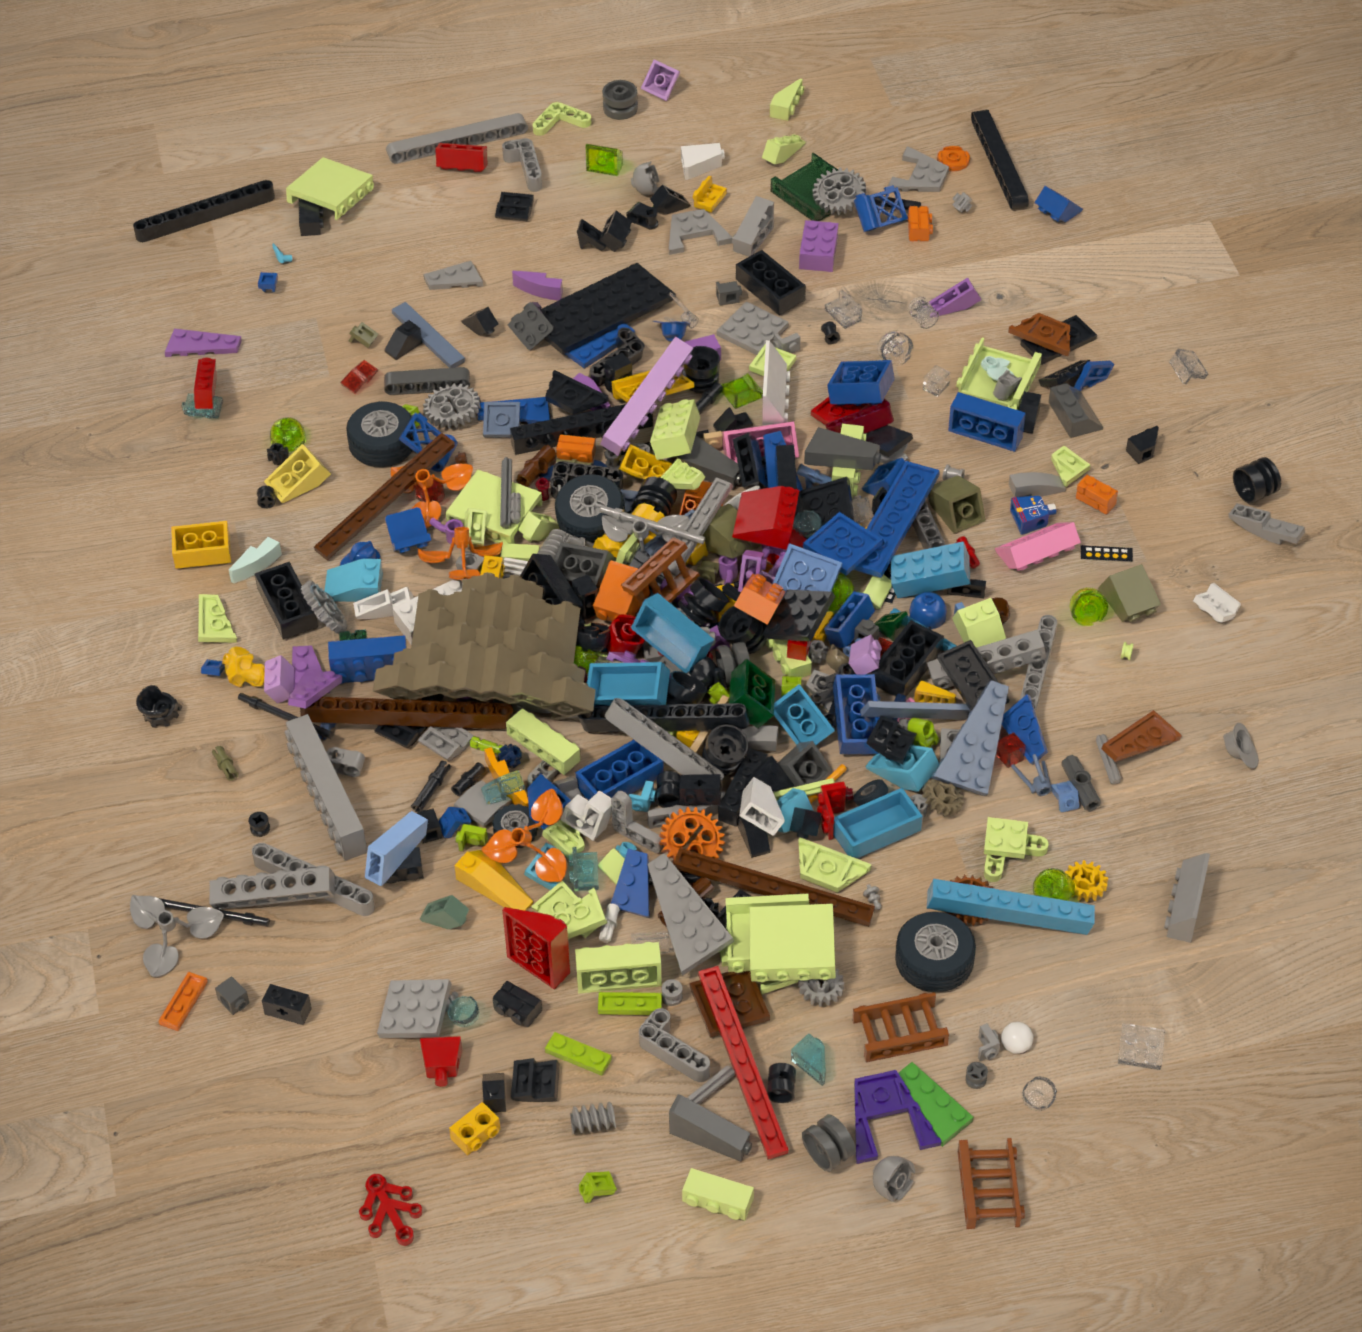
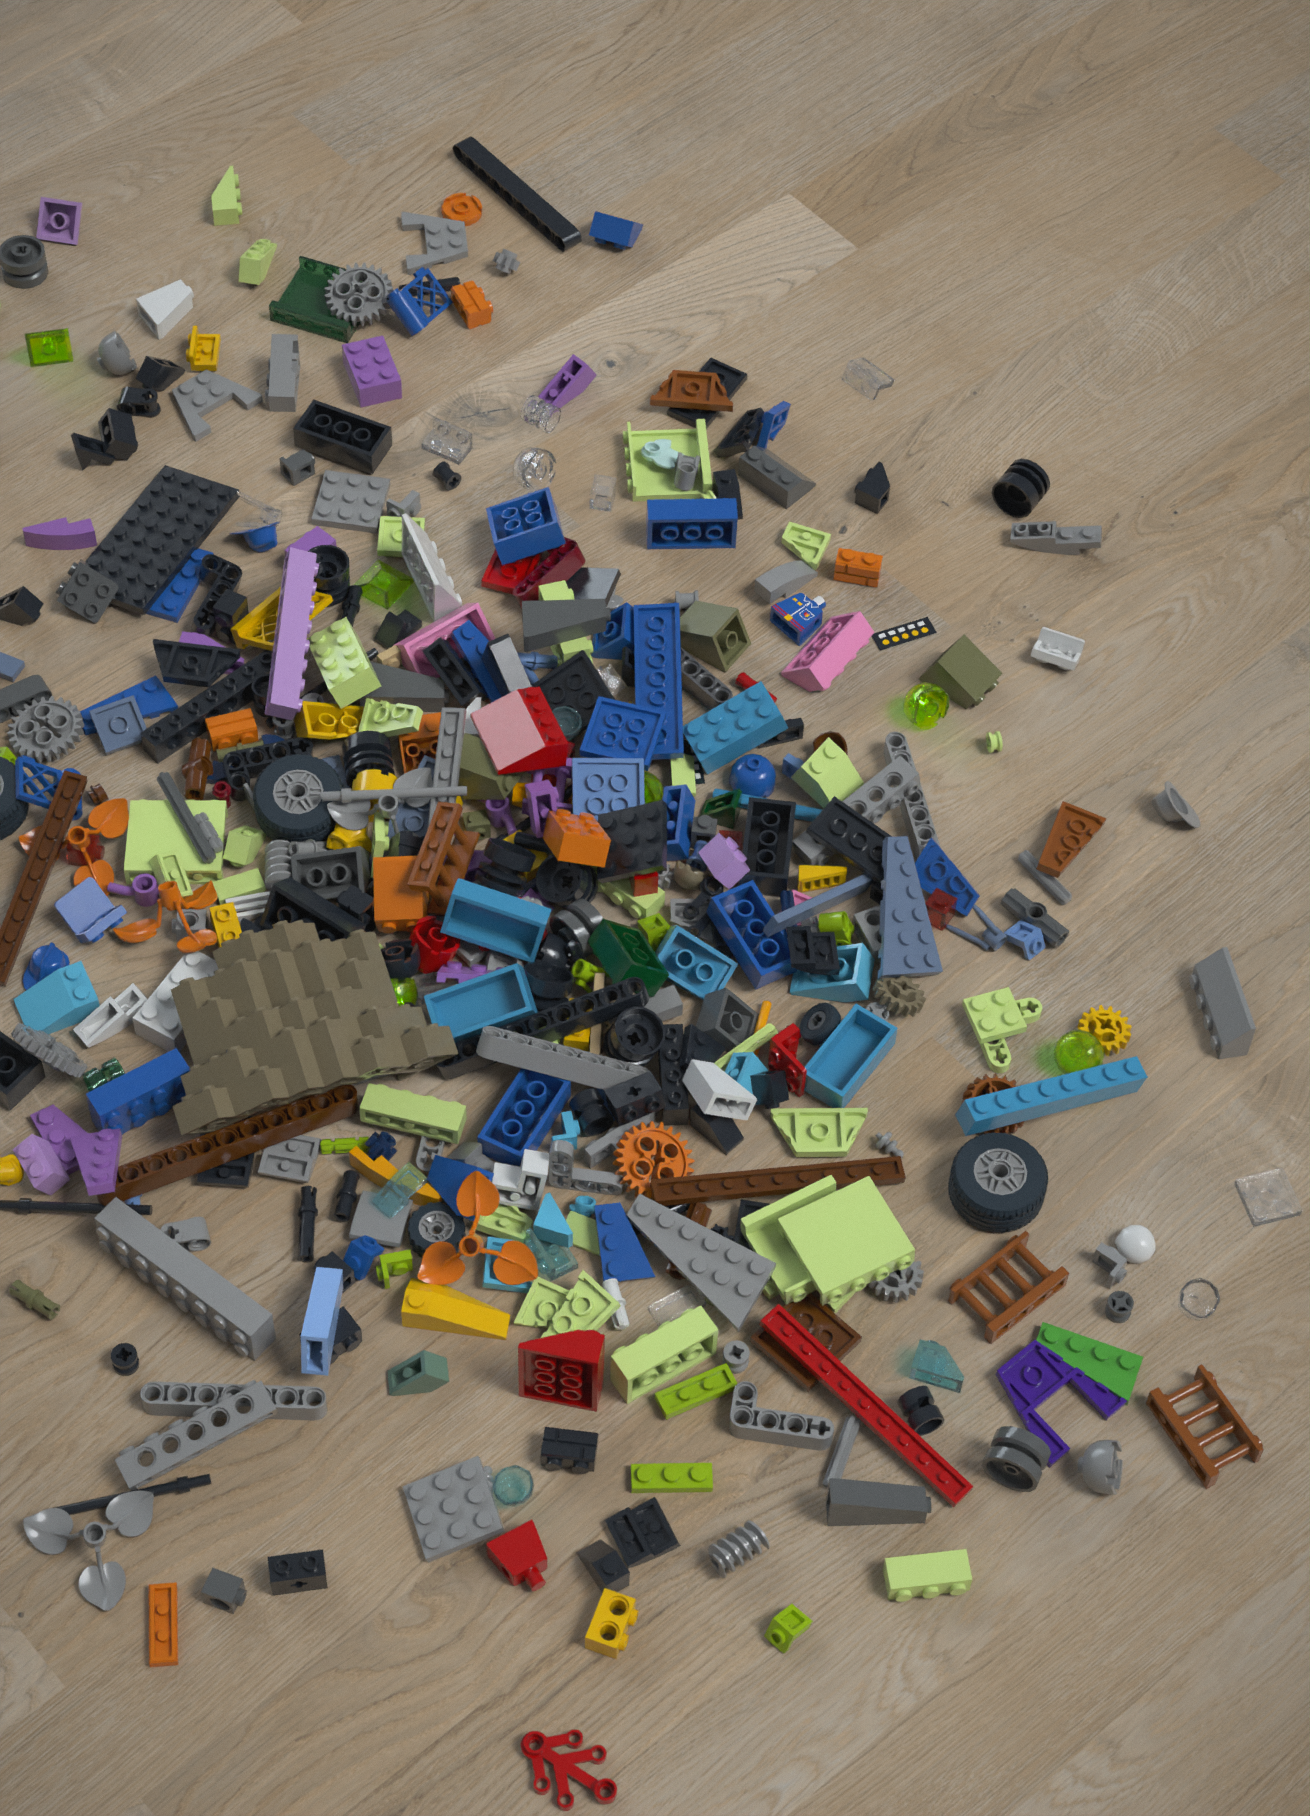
camera: 30 degrees left, 5 degrees up
(591, 849) = (551, 1224): none -> medium azure slope

